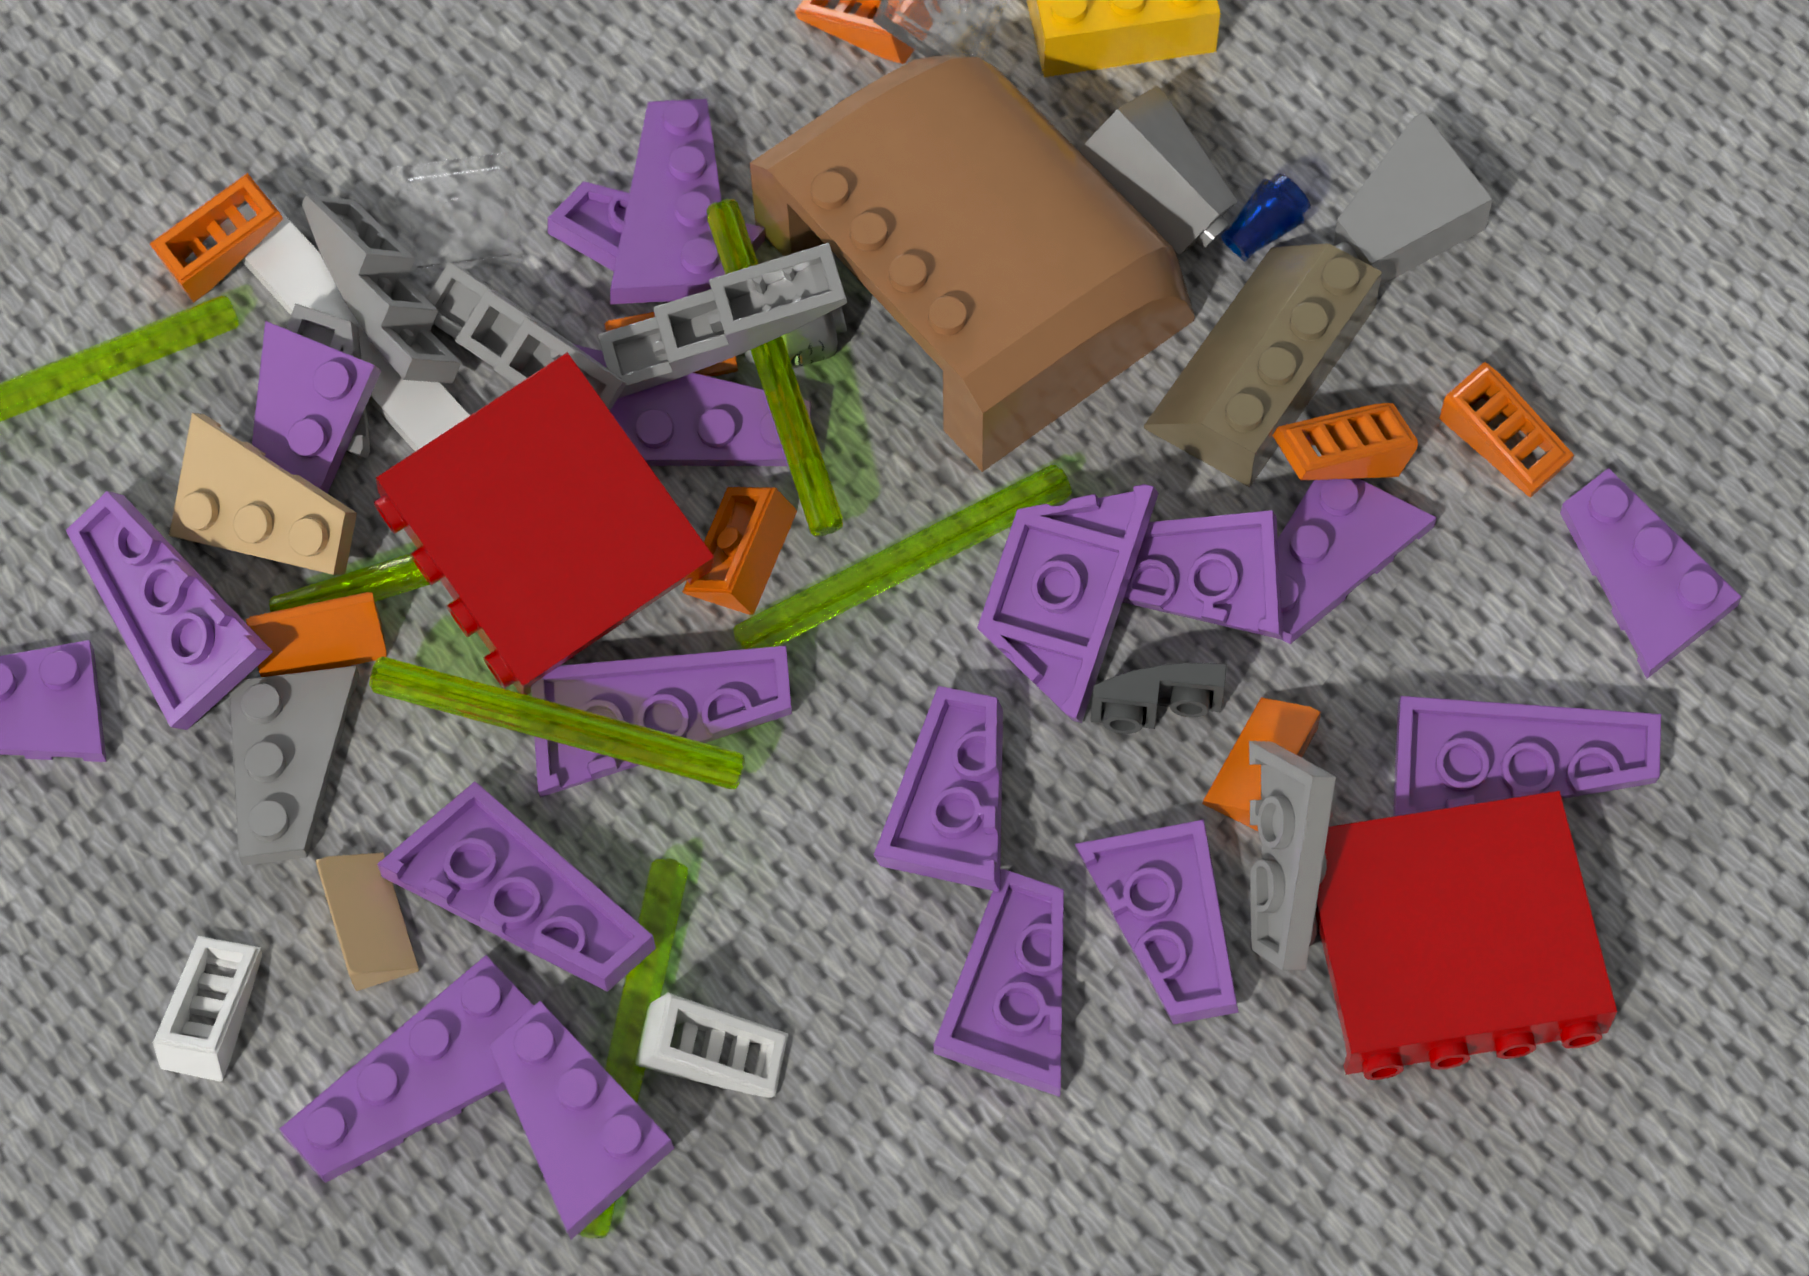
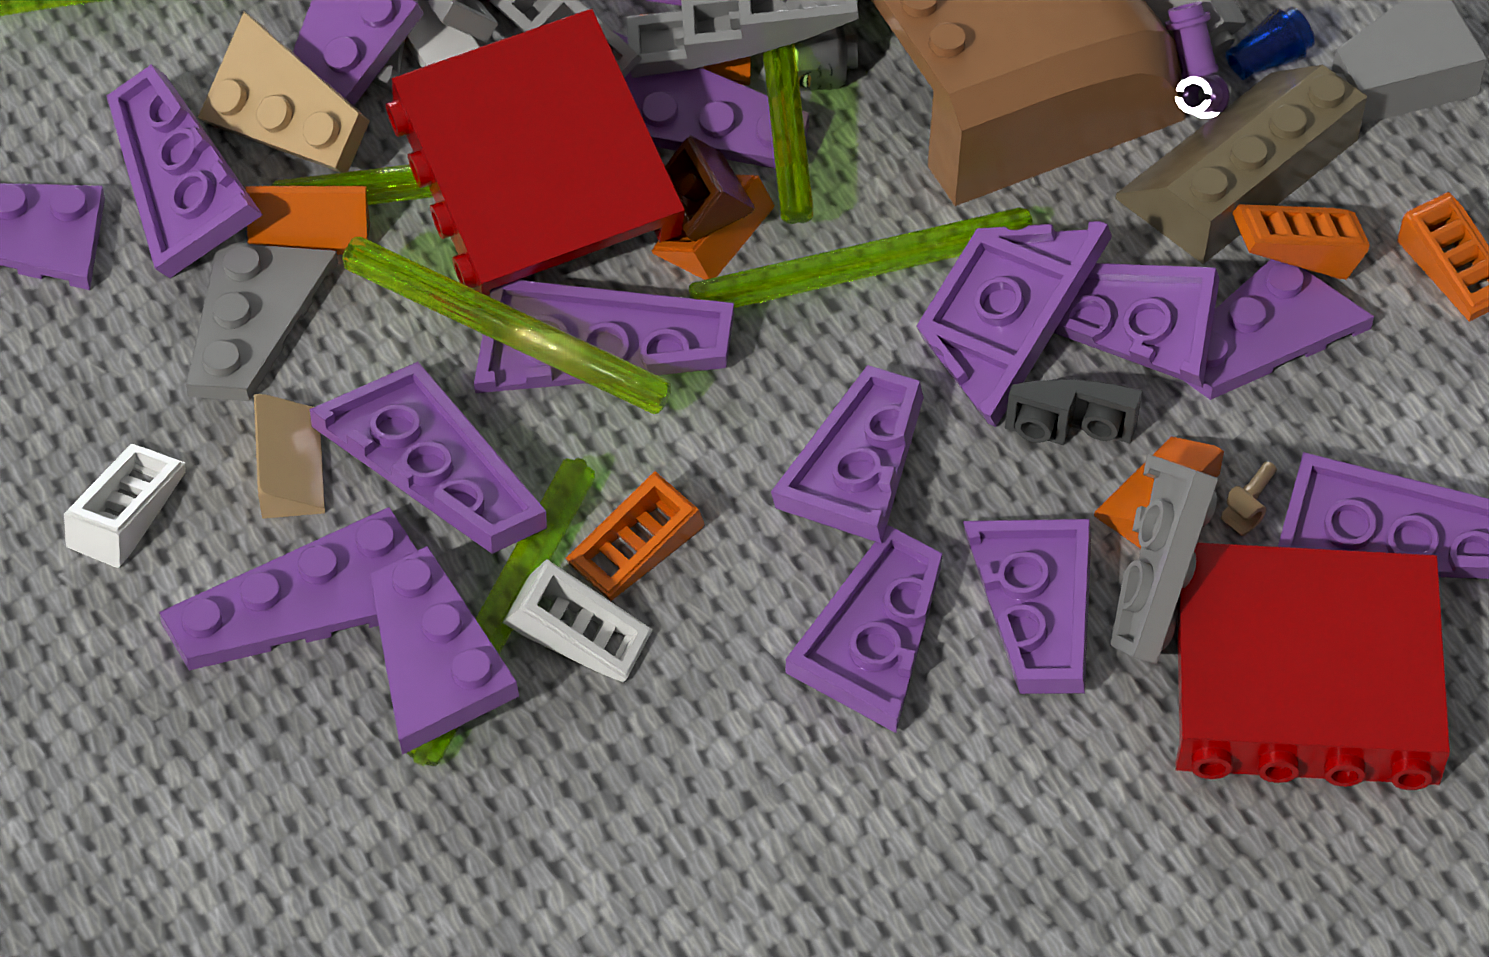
camera: 10 degrees right, 10 degrees down
(725, 515) = (706, 189): none -> reddish brown slope
(739, 901) = (651, 494): none -> orange slope
(1189, 240) = (1192, 39): none -> medium lavender pin
(1215, 283) = (1212, 85): none -> medium lavender pin
(1350, 766) = (1243, 508): none -> tan hand

